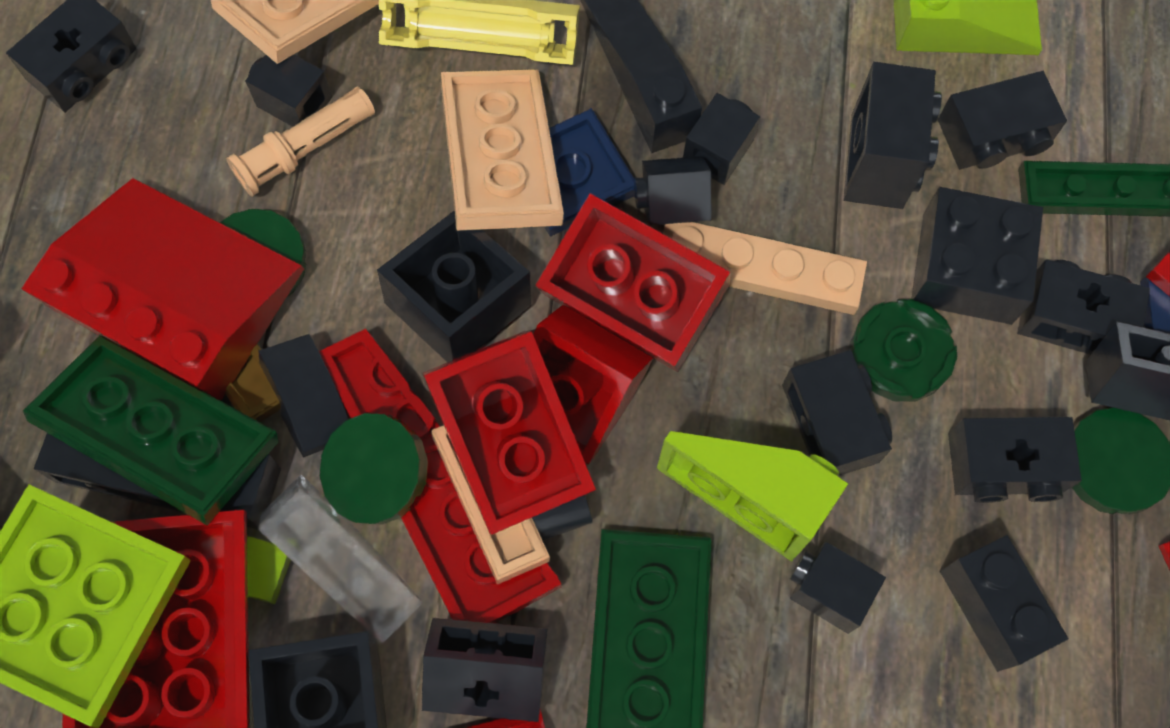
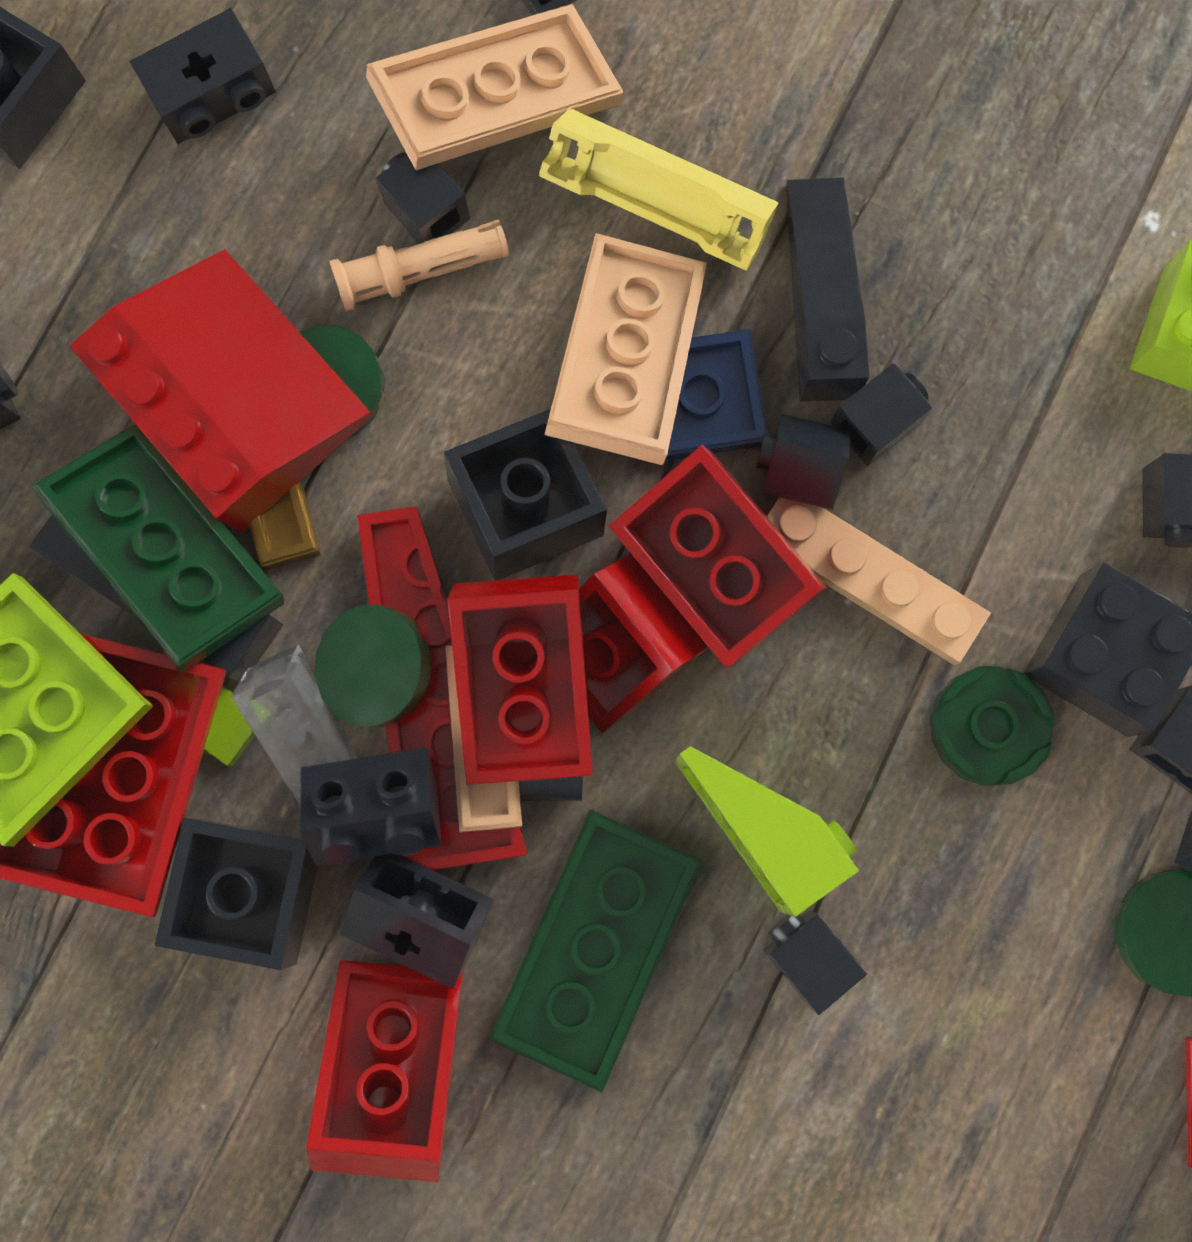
camera: 25 degrees right, 10 degrees up
(305, 392) = (329, 555): black slope -> none
(414, 583) = (370, 807): none -> black brick
(837, 412) = (889, 775): black brick -> none
(892, 135) = (1075, 479): black brick -> none
(1003, 604) = (984, 1044): black brick -> none
(1040, 445) = (1100, 892): black brick -> none

